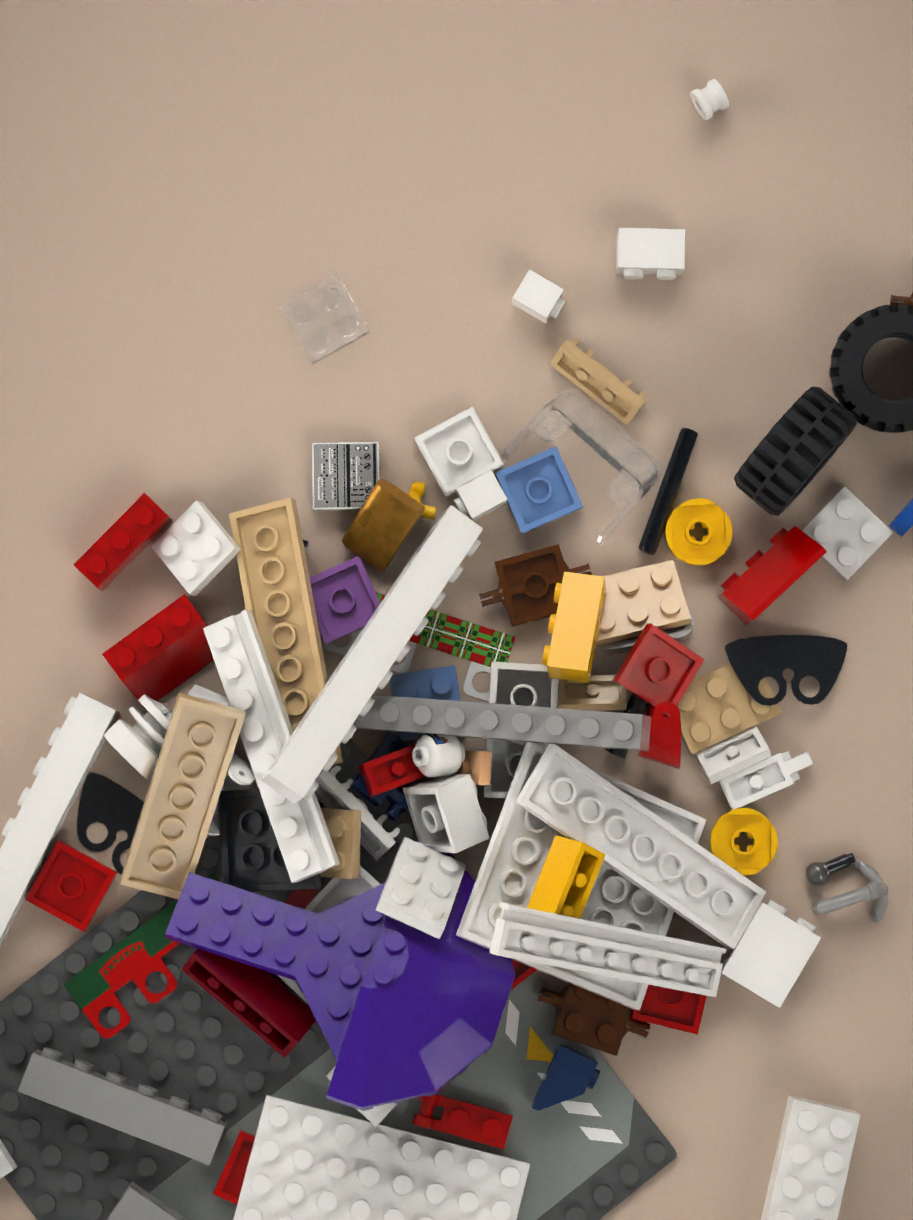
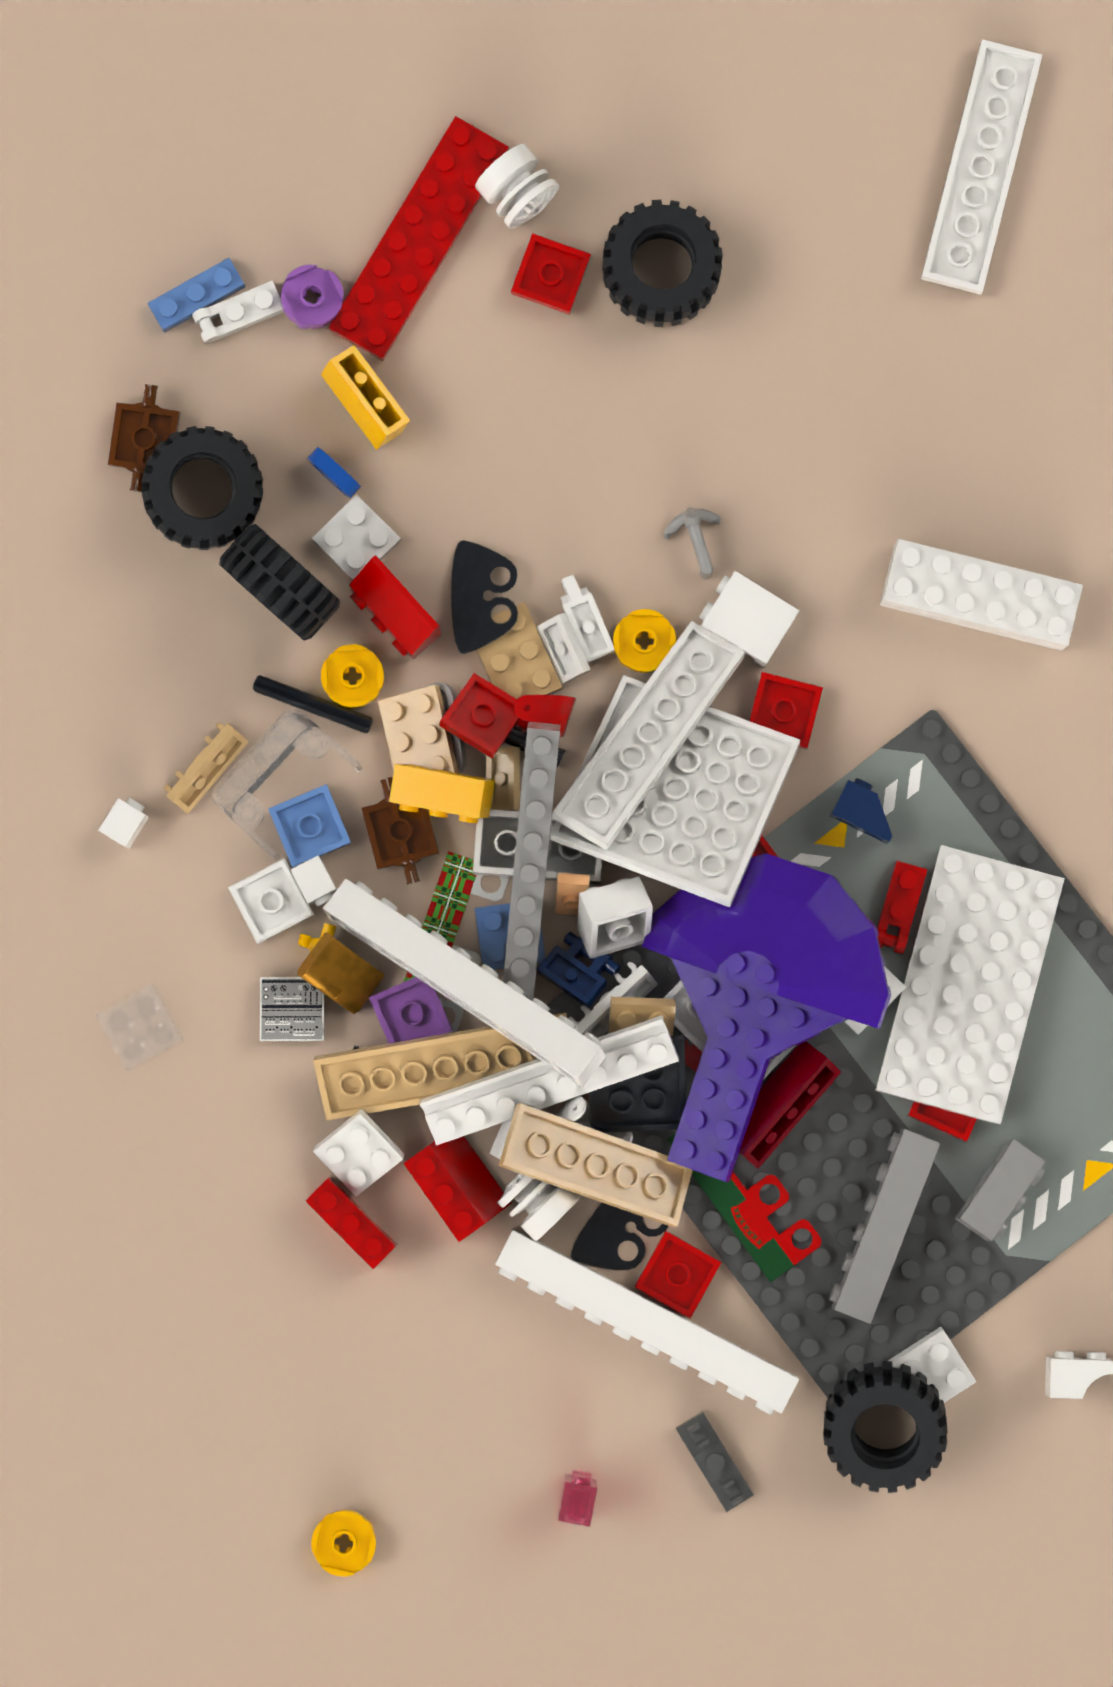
camera: 90 degrees left, 0 degrees up
(390, 771) = (569, 955): red plate -> none
(421, 887) = (685, 939): white plate -> none
(438, 755) = (560, 923): white head -> none
(566, 878) = (691, 808): yellow brick -> none
(591, 1018) = (807, 785): reddish brown plate -> none
(606, 950) = (745, 766): white plate -> none
(650, 252) = (84, 715): white brick -> none
(819, 872) = (674, 571): piece -> none

